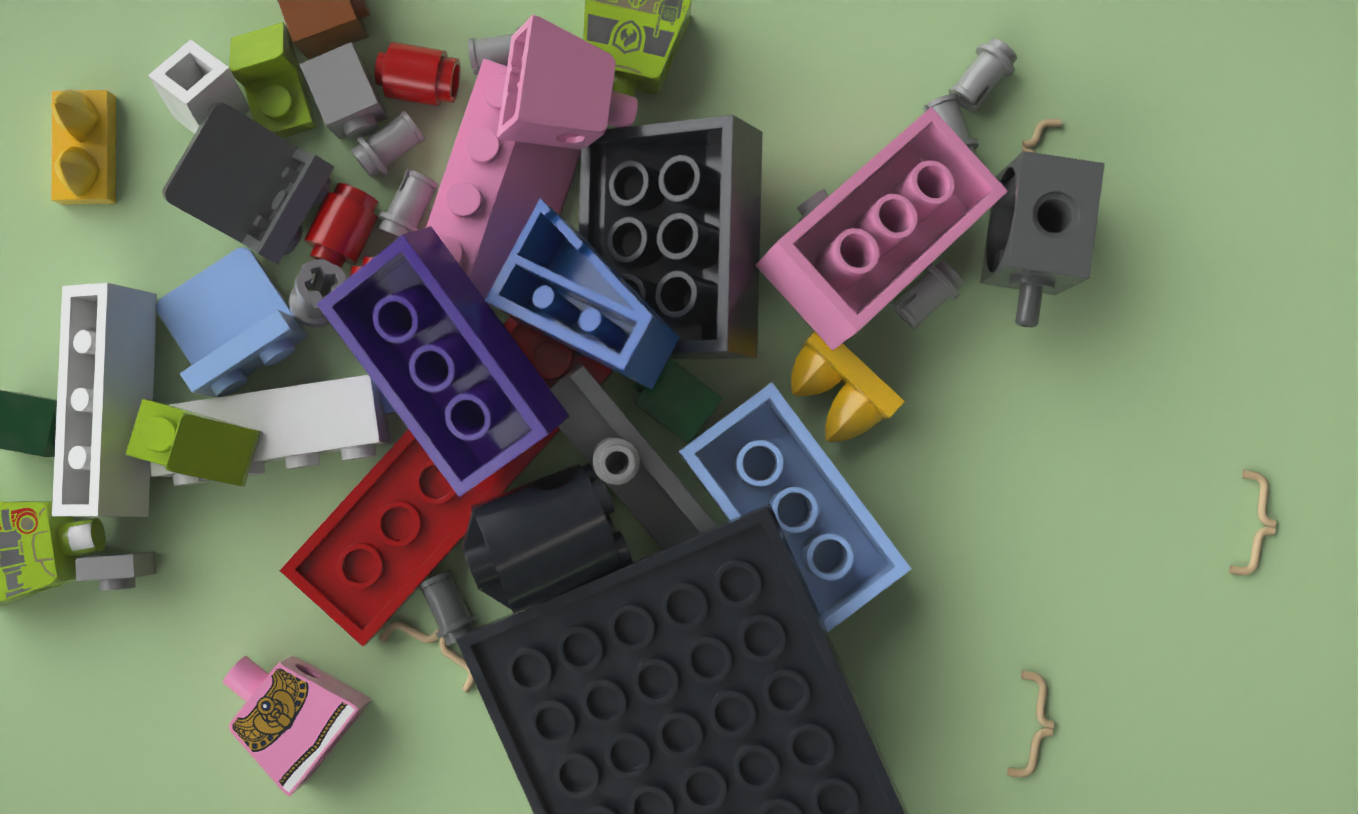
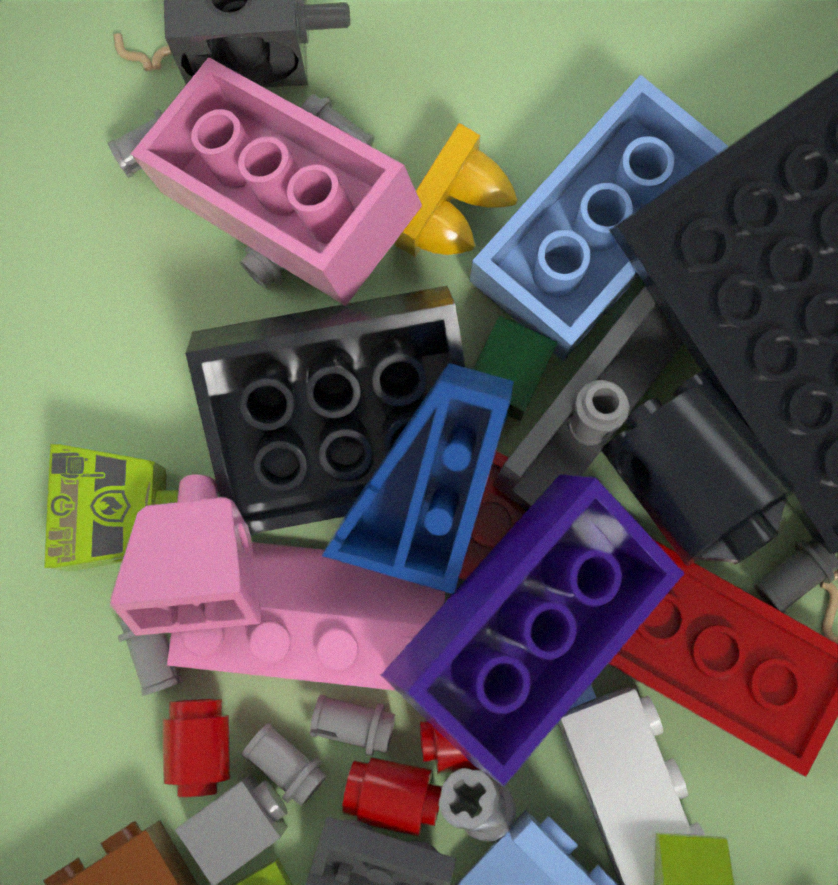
camera: 90 degrees left, 5 degrees down
(985, 72) = (67, 114): light grey pin -> none

